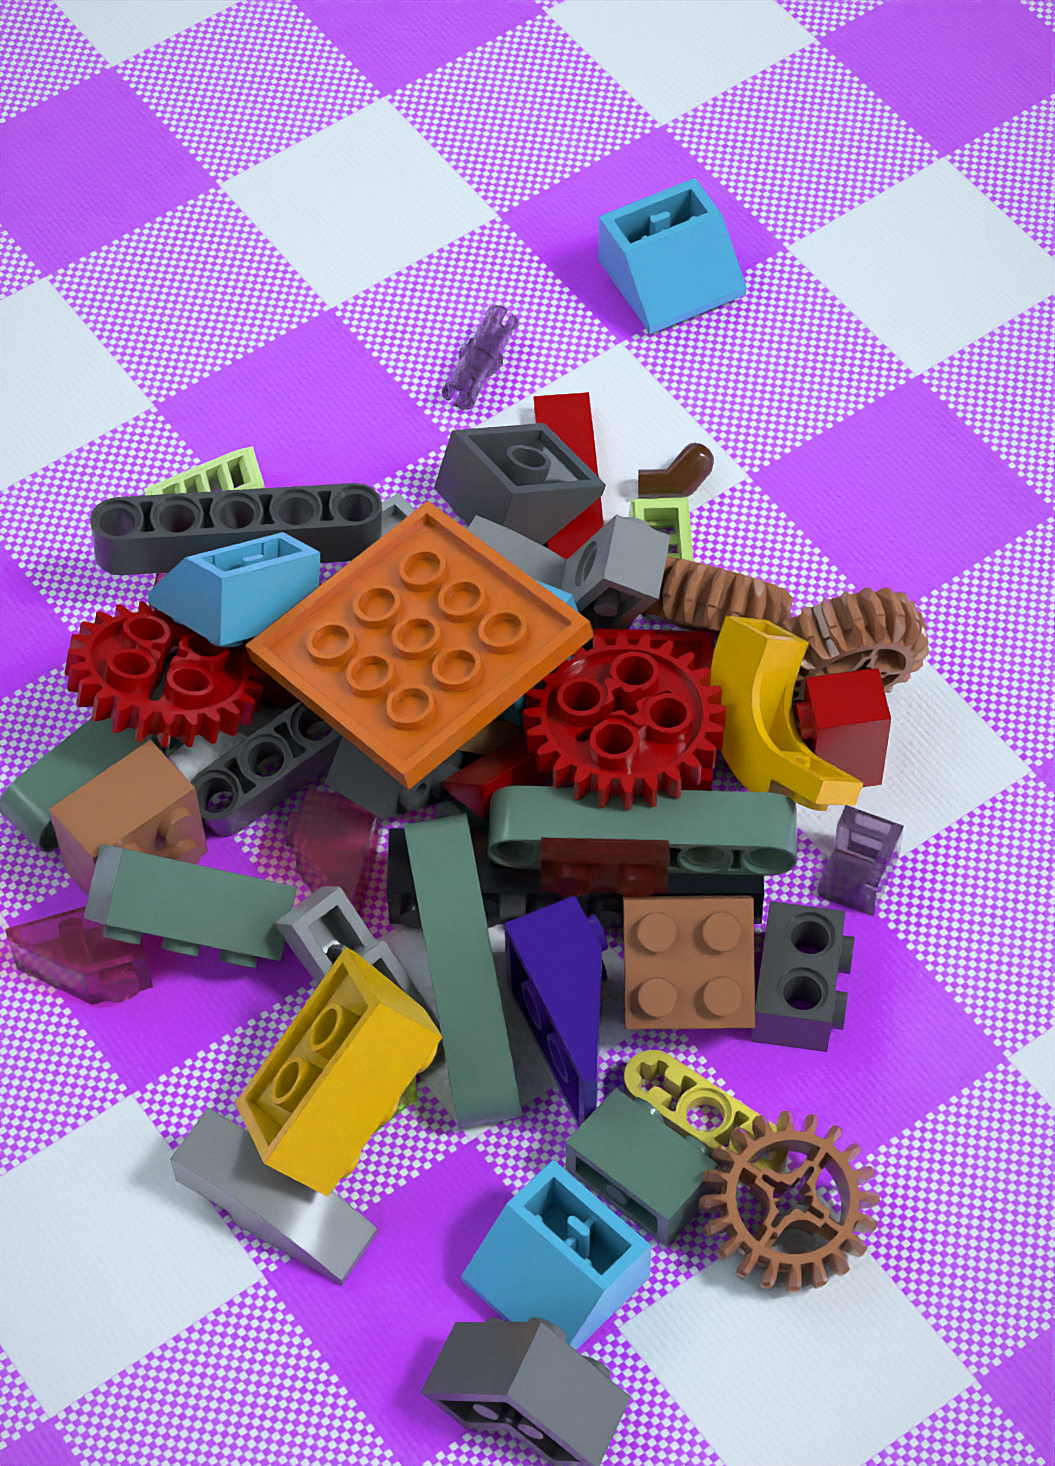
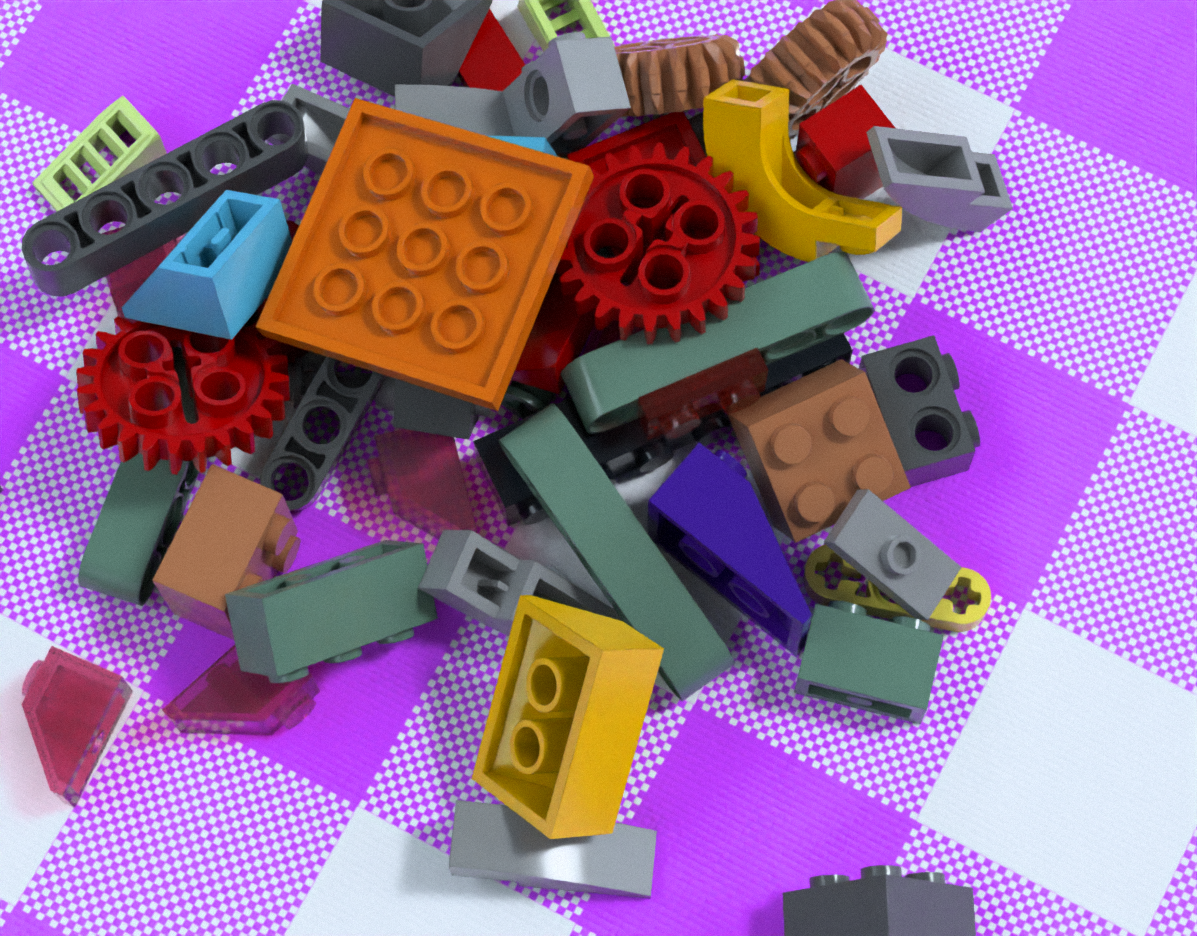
camera: 25 degrees left, 15 degrees up
(558, 1257) = (844, 793): medium azure slope -> none
(705, 1073) = (892, 554): none -> light grey plate
(815, 1219) = (1022, 614): nougat gear -> none
(861, 860) = (914, 274): clear purple panel -> none
(914, 779) = (940, 177): none -> slope

